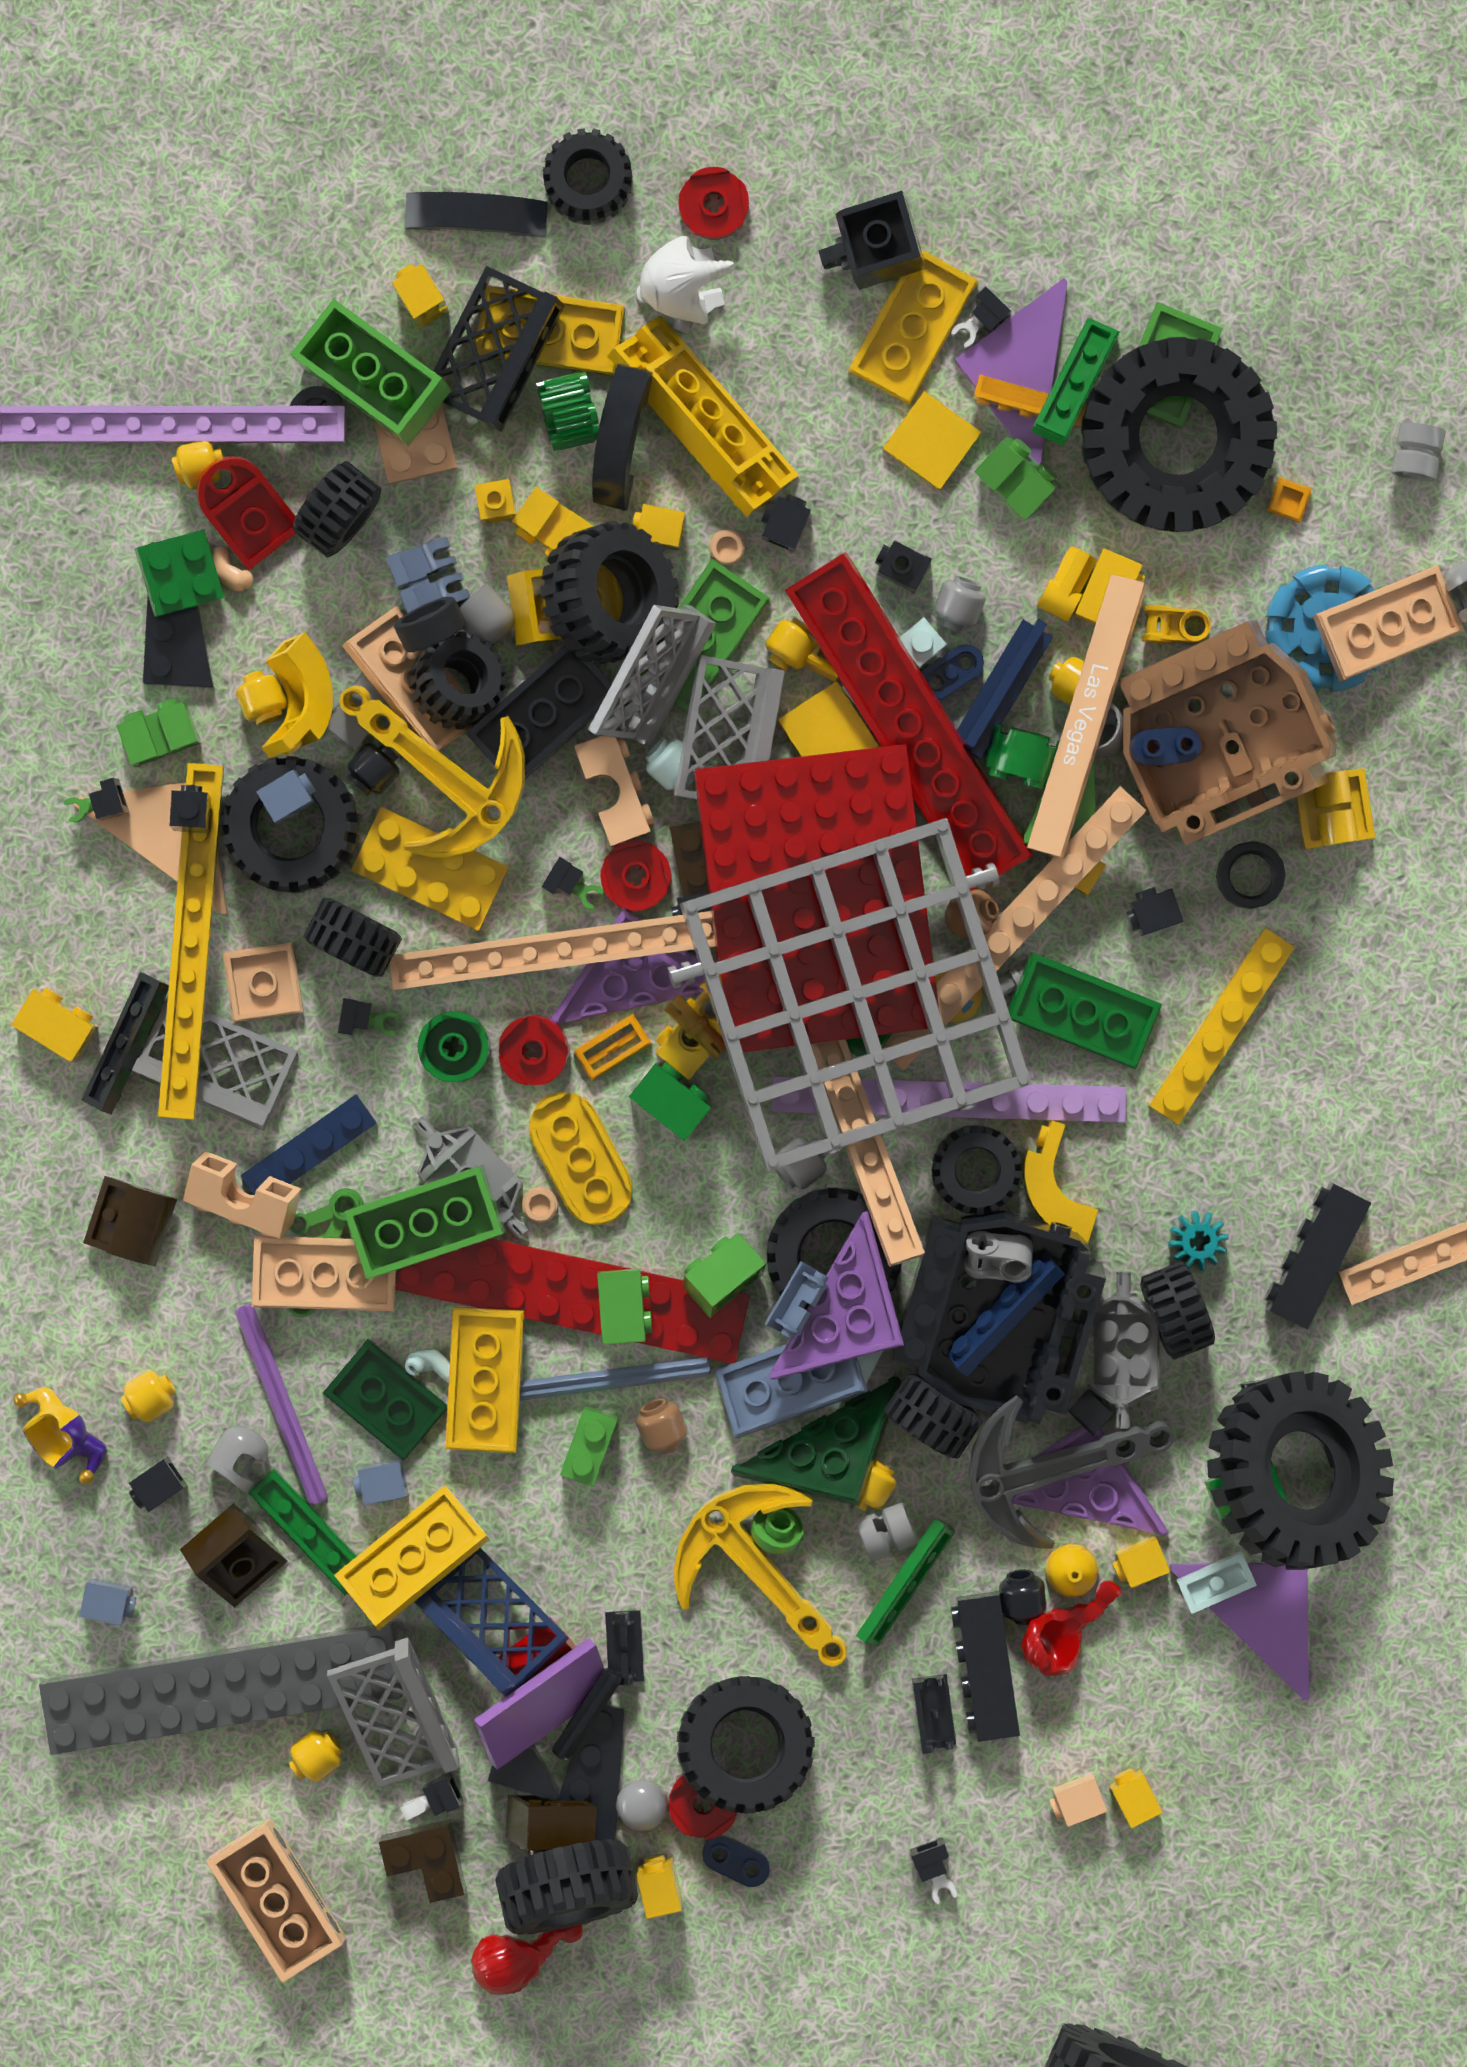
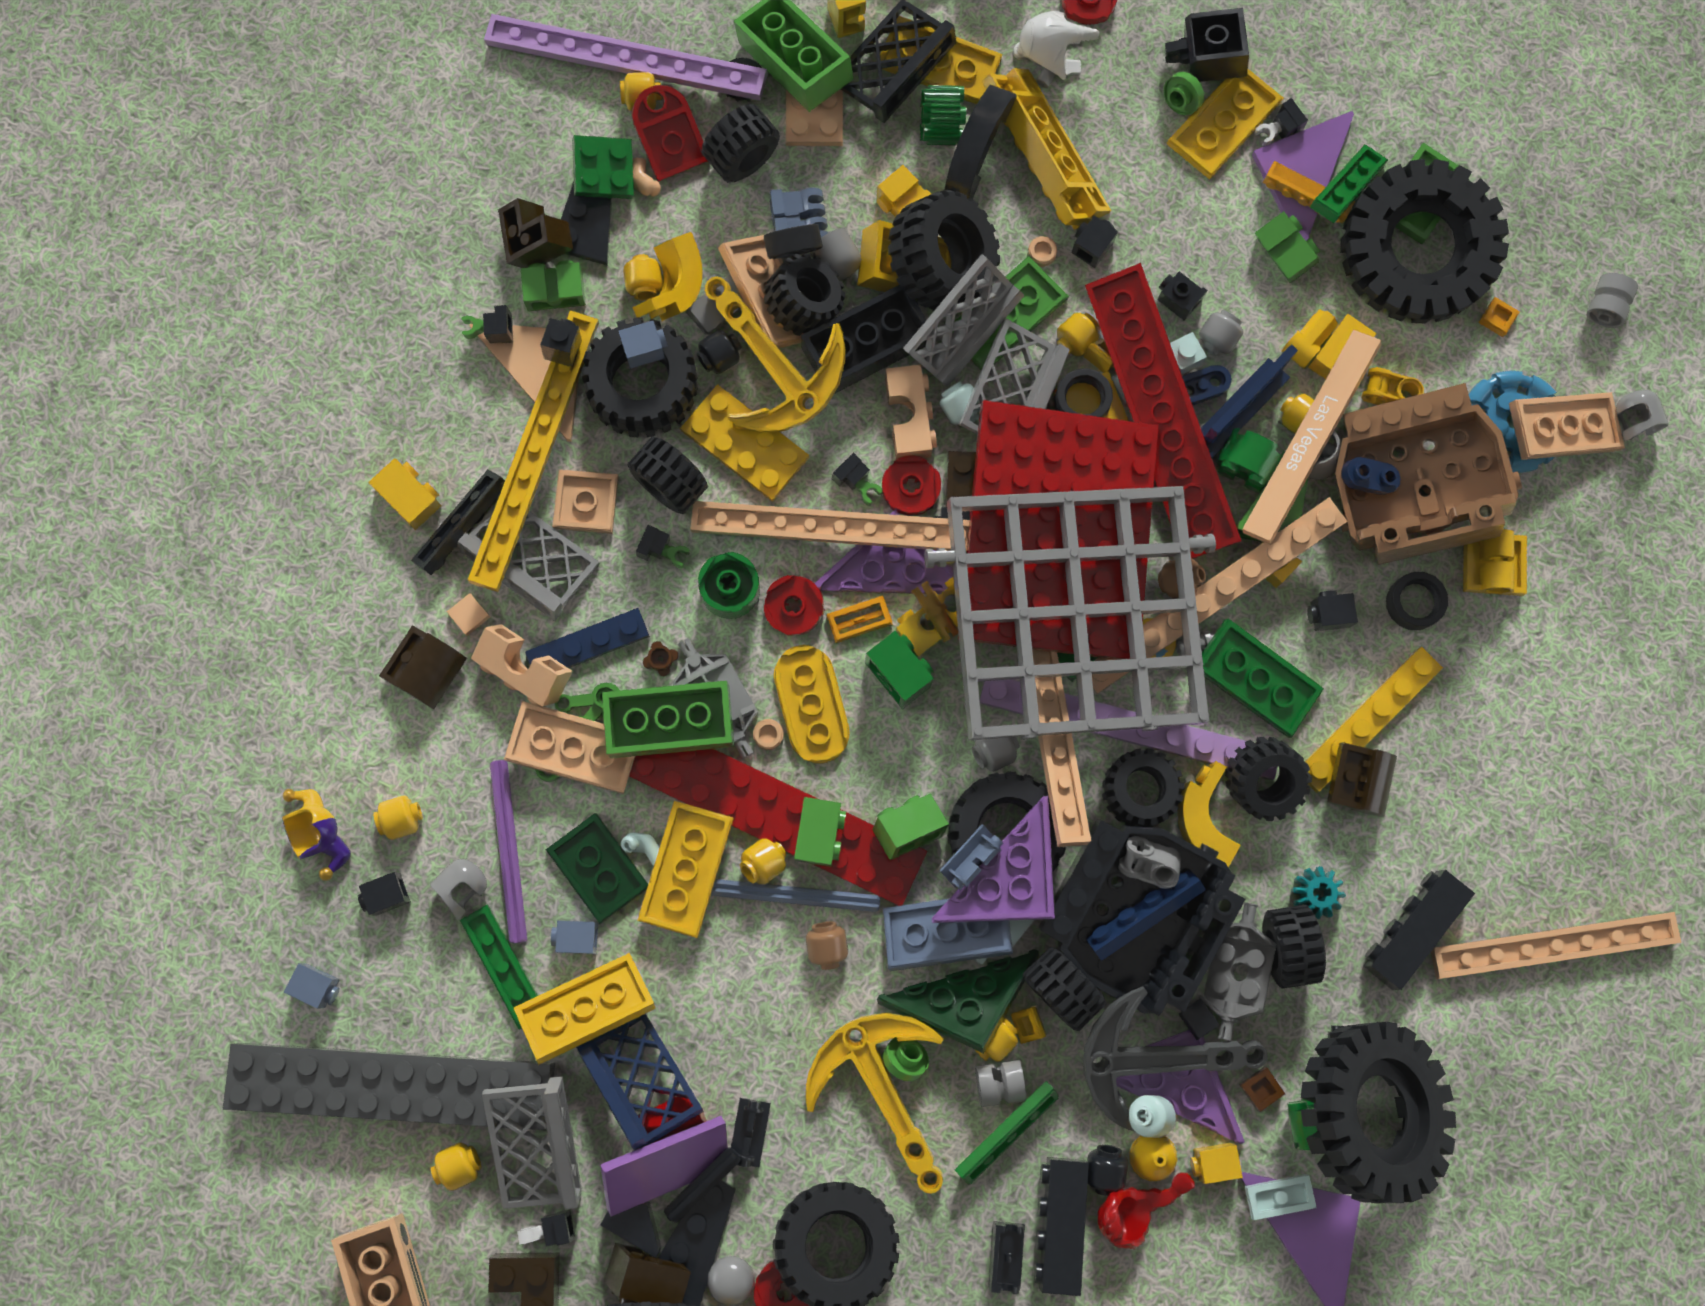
camera: 10 degrees right, 10 degrees down
(114, 683) = (532, 235): none -> dark brown brick
(164, 1146) = (468, 614): none -> light nougat tile
(233, 1555) = (431, 971): dark brown slope -> none
(401, 1155) = (663, 667): none -> reddish brown plate
(495, 501) = (867, 171): yellow brick -> none
(568, 1351) = (763, 861): none -> yellow head
(589, 1446) = (760, 947): bright green brick -> none
(662, 524) = (1000, 216): yellow brick -> none
(807, 699) = (1090, 377): none -> black tyre
(854, 309) = (1183, 93): none -> bright green plate
(905, 1459) = (1028, 1024): none -> yellow slope
(931, 440) = (1222, 208): yellow tile -> none
(1058, 1529) = (1152, 1116): none -> light aqua head
(1129, 1147) = (1283, 794): none -> black tyre
(1176, 1470) = (1262, 1089): none -> reddish brown plate
(1222, 1102) = (1362, 779): none -> dark brown brick

